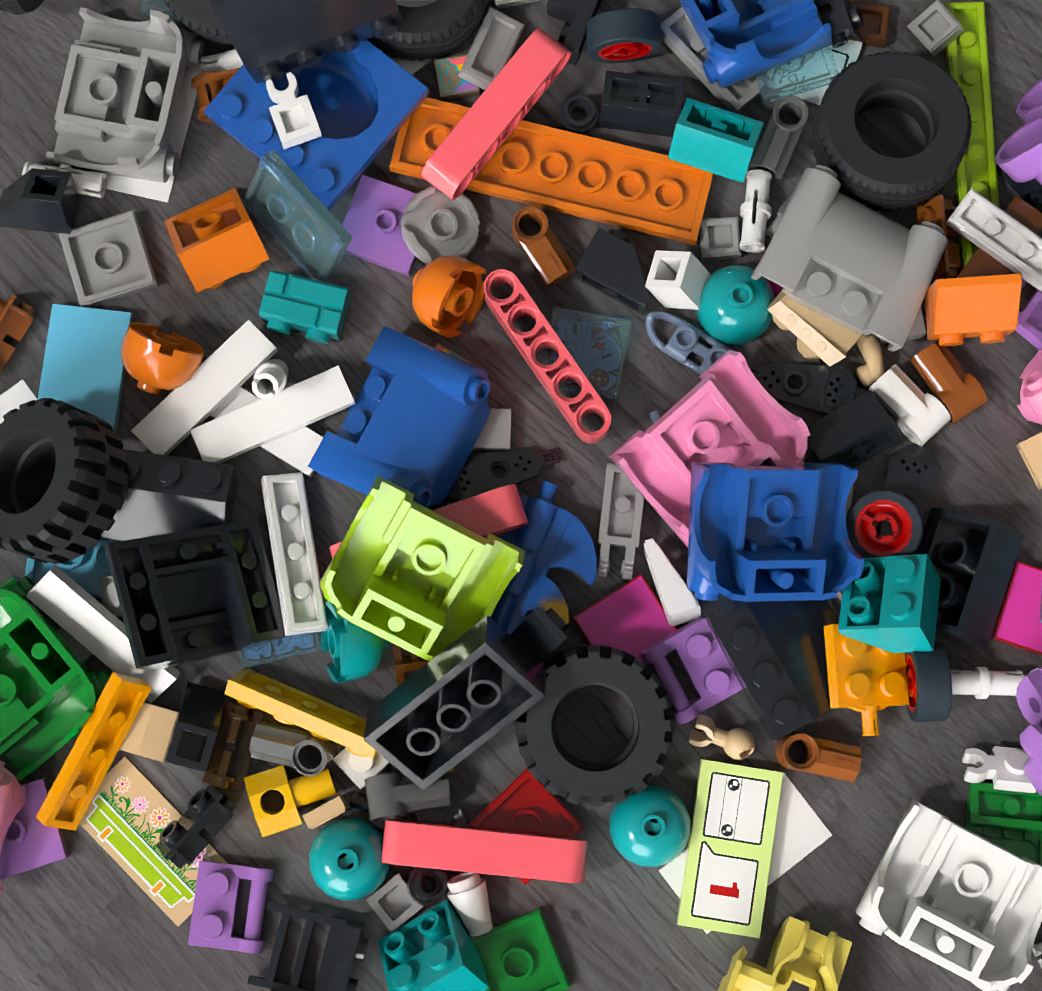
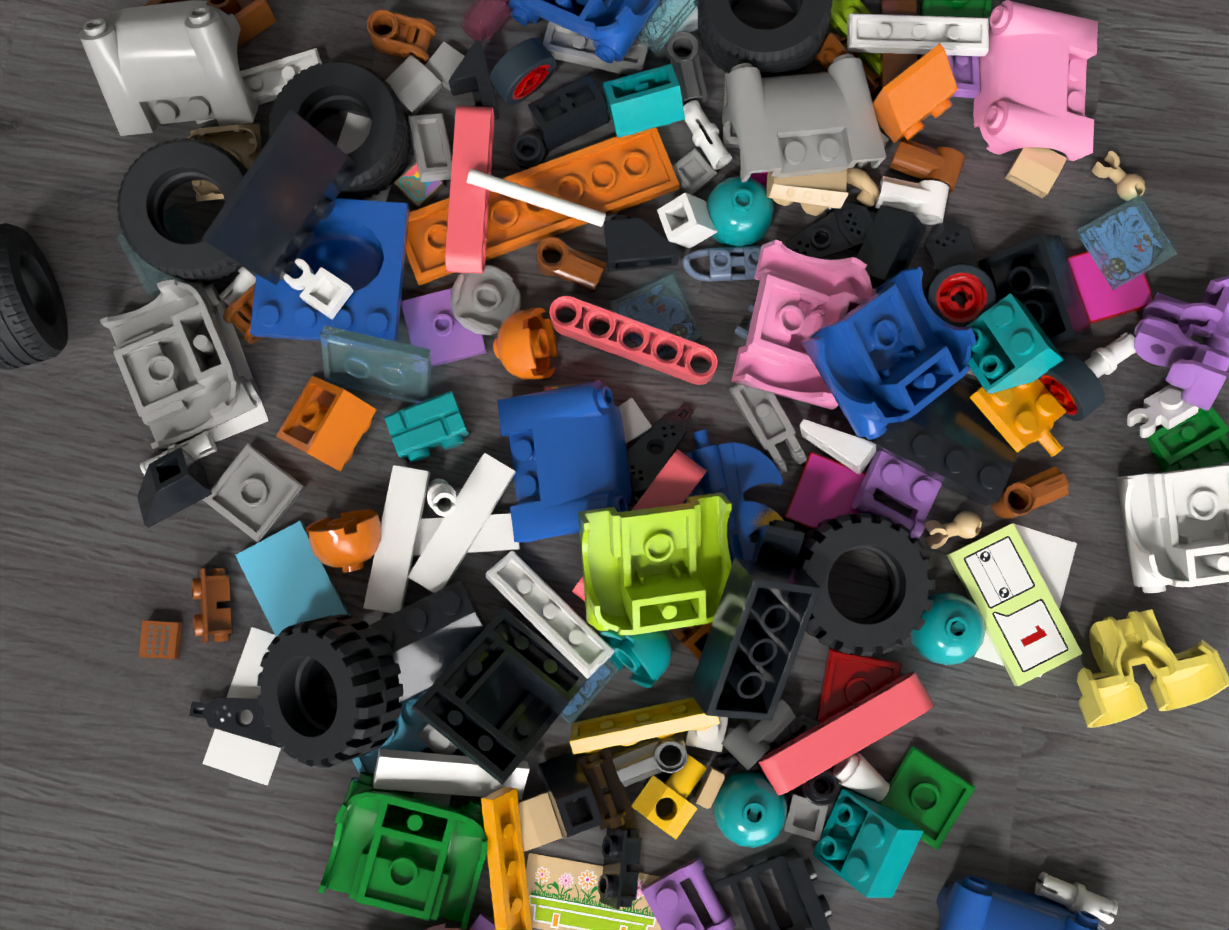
camera: 35 degrees left, 0 degrees up
(550, 163) = (535, 197): none -> white piece

